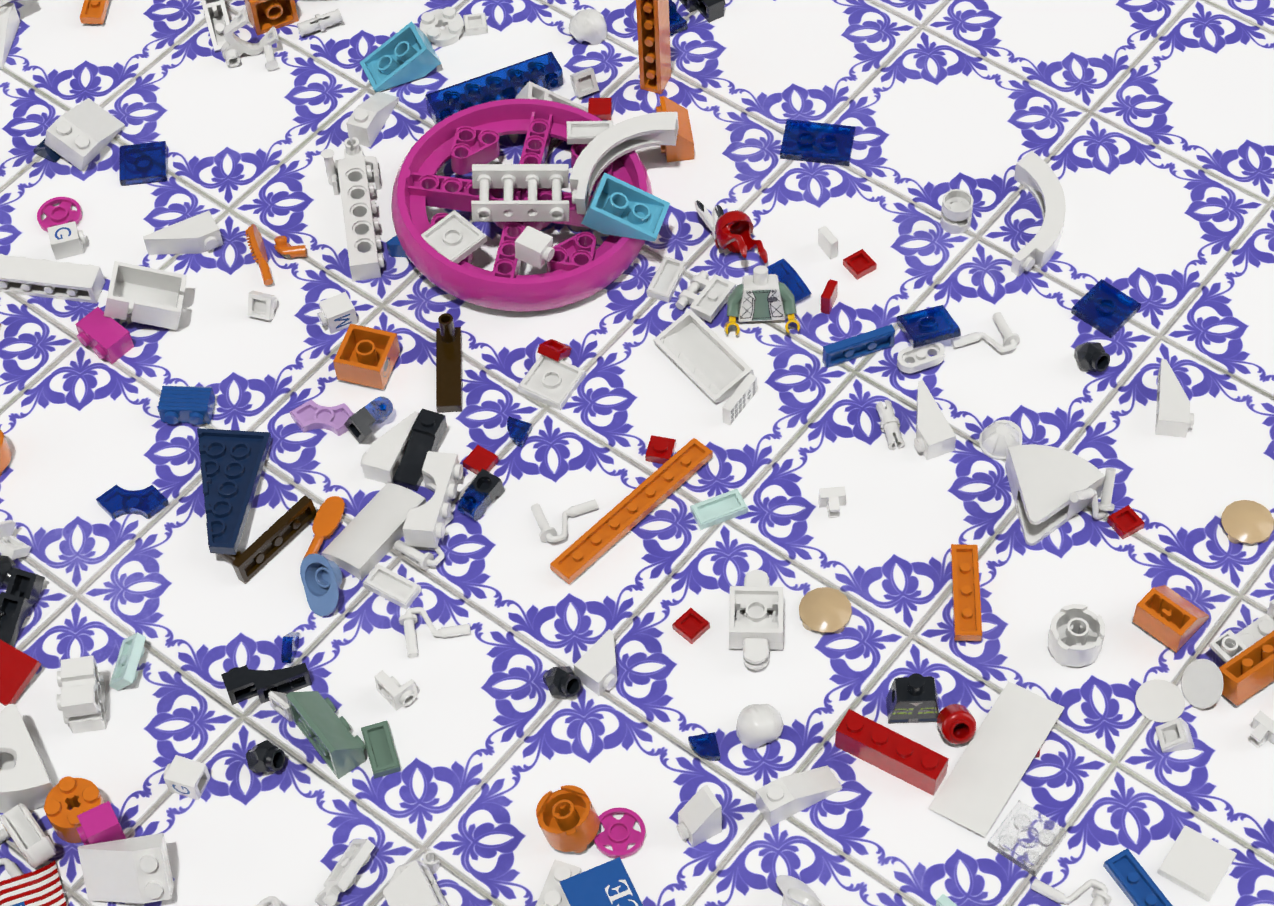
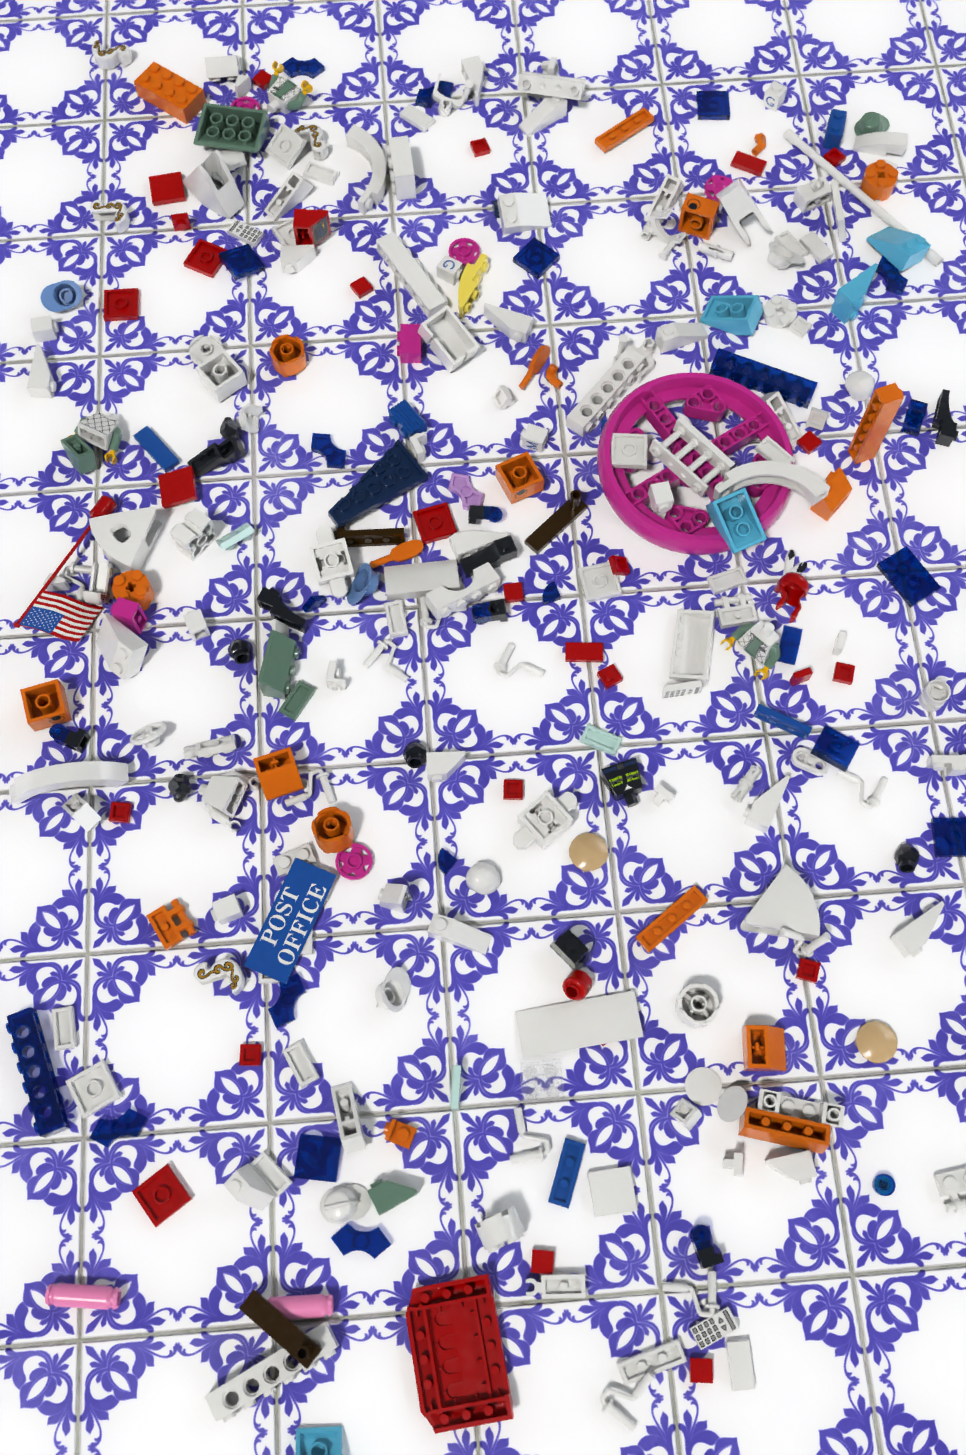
camera: 45 degrees right, 15 degrees up
(101, 236) = (469, 283): none -> light yellow slope
(226, 418) = (417, 447): none -> white bracket
(271, 579) = (331, 561): none -> white brick
(326, 470) = (434, 523): none -> red tile
(447, 825) = (278, 773): none -> orange slope
(505, 793) = (322, 776): none -> white piece
(611, 451) = (583, 652): none -> red tile
(631, 510) = (556, 696): orange plate -> none
(783, 521) = (623, 781): none -> torso
(891, 752) = (527, 964): red brick -> none
(998, 437) = (798, 853): white piece -> none

